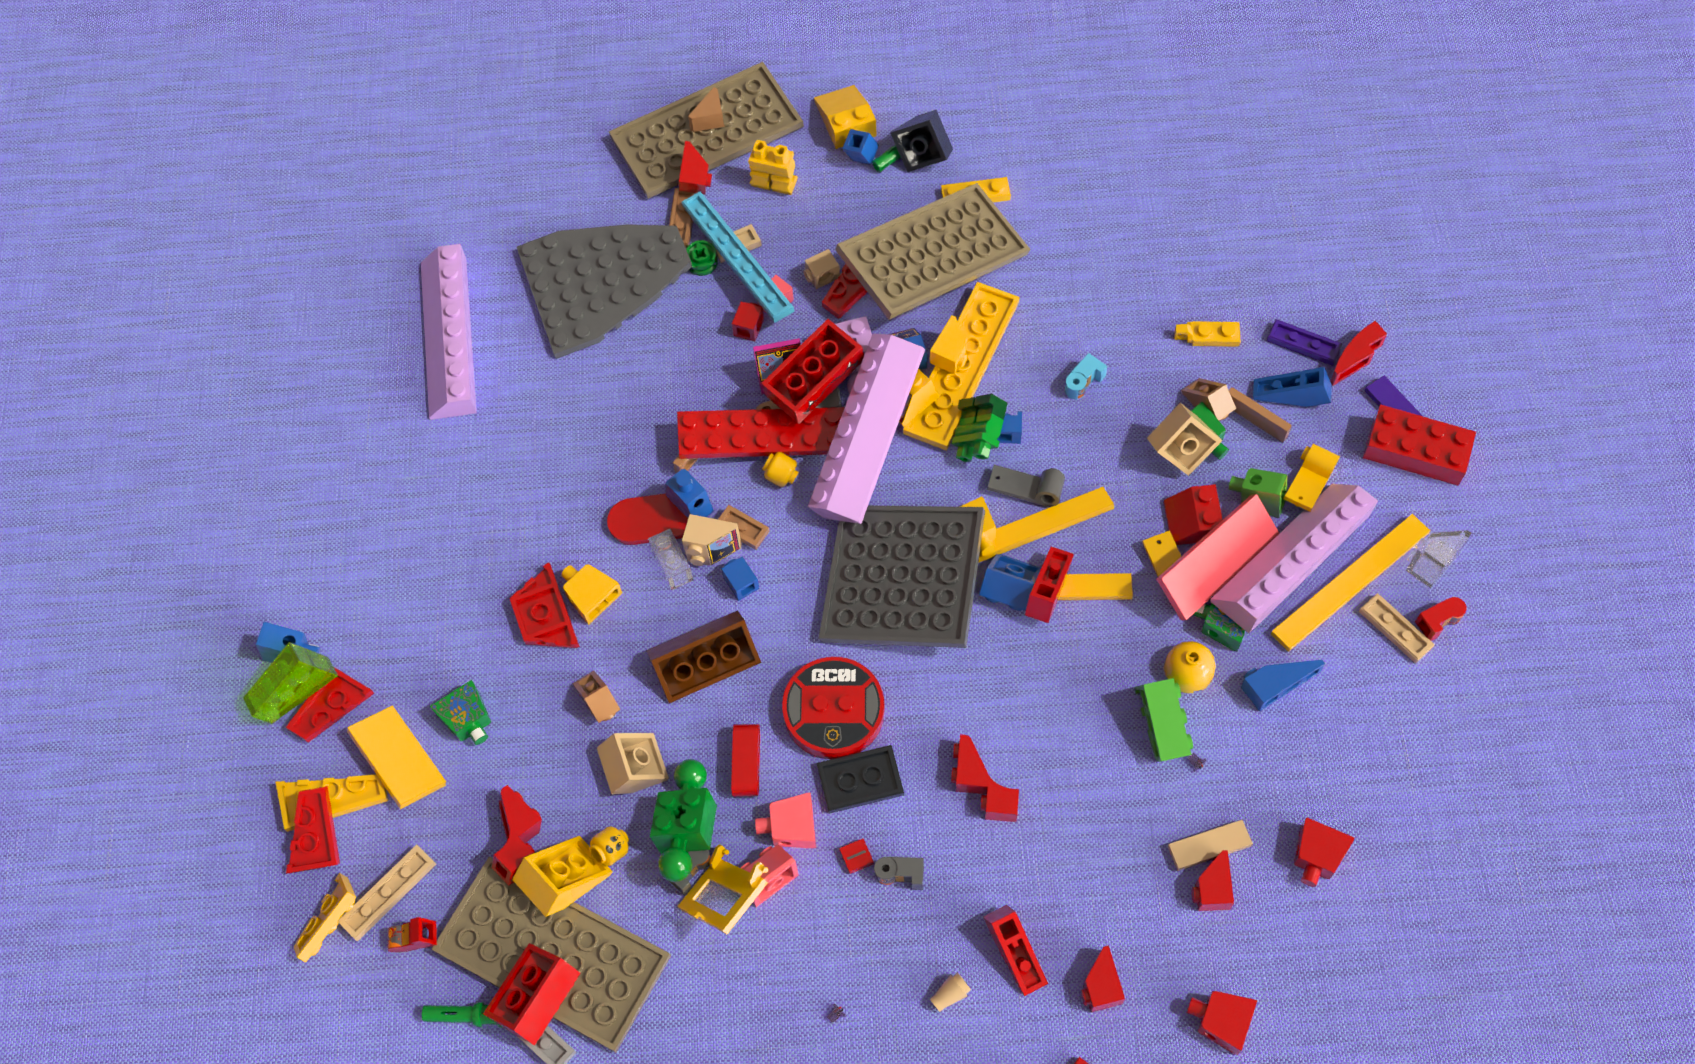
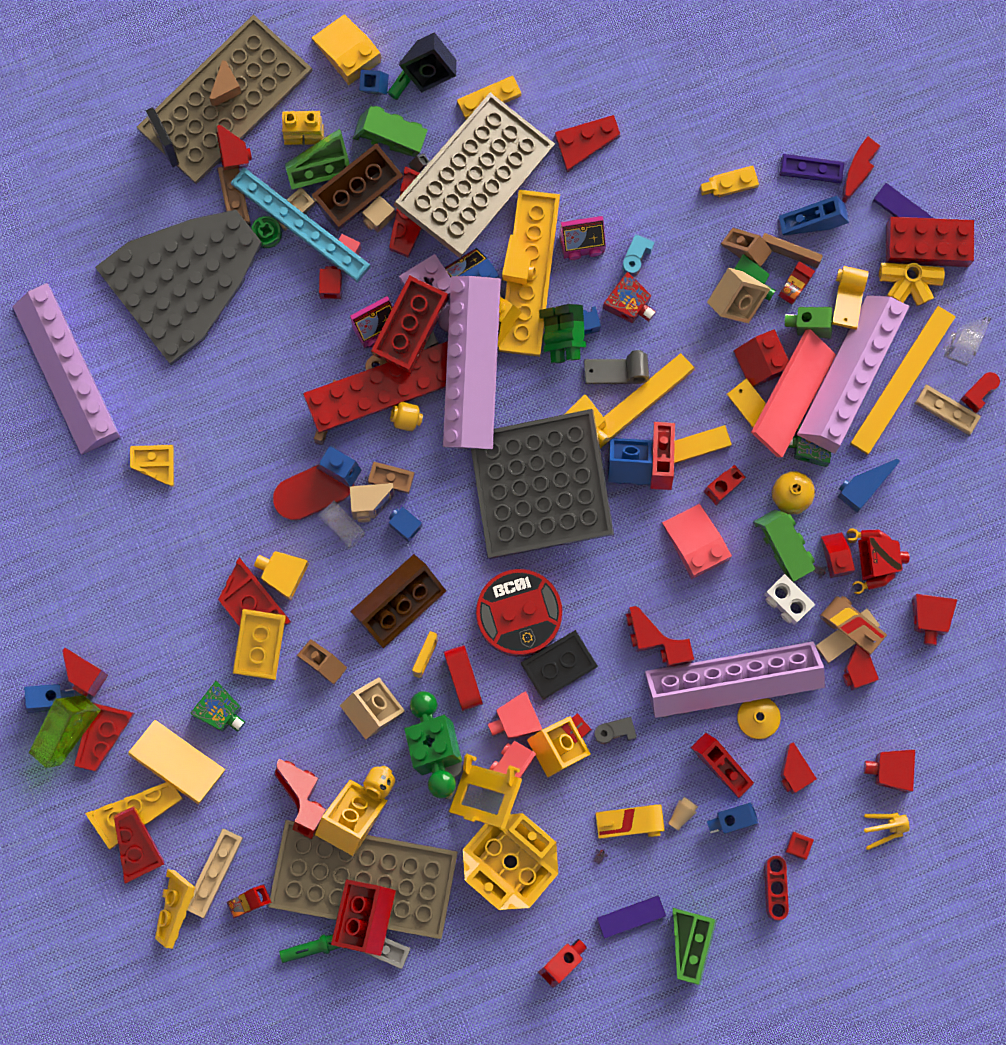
camera: 25 degrees left, 15 degrees up
(333, 632) = (84, 675): none -> red slope
(499, 444) = (154, 461): none -> yellow wing
(534, 657) = (259, 644): none -> yellow tile
(626, 136) = (162, 137): none -> black tile
(709, 959) = (514, 886): none -> yellow piece
(710, 719) = (425, 654): none -> yellow tile
(779, 204) = (318, 162): none -> bright green wedge
(804, 234) = (357, 187): none -> reddish brown slope
(825, 871) = (556, 749): none -> slope
(861, 194) = (390, 131): none -> bright green wedge
(885, 981) = (630, 821): none -> yellow door
(1022, 1018) = (744, 817): none -> blue torso
(1030, 341) = (583, 238): none -> slope
(1059, 255) = (585, 139): none -> red wing
(1061, 418) = (629, 300): none -> torso
(1061, 855) = (735, 679): none -> lavender slope
(1062, 689) = (697, 541): none -> coral slope
(1071, 920) = (754, 728): none -> yellow dish
(1111, 635) = (724, 484): none -> red leg
(1156, 780) = (793, 596): none -> white brick
(1220, 830) = (853, 624): none -> medium nougat door
(1222, 751) = (837, 555): none -> red slope
(1255, 448) = (796, 283): none -> red leg
(1271, 765) = (878, 557): none -> red torso
(1392, 487) = (916, 287): none -> yellow piece

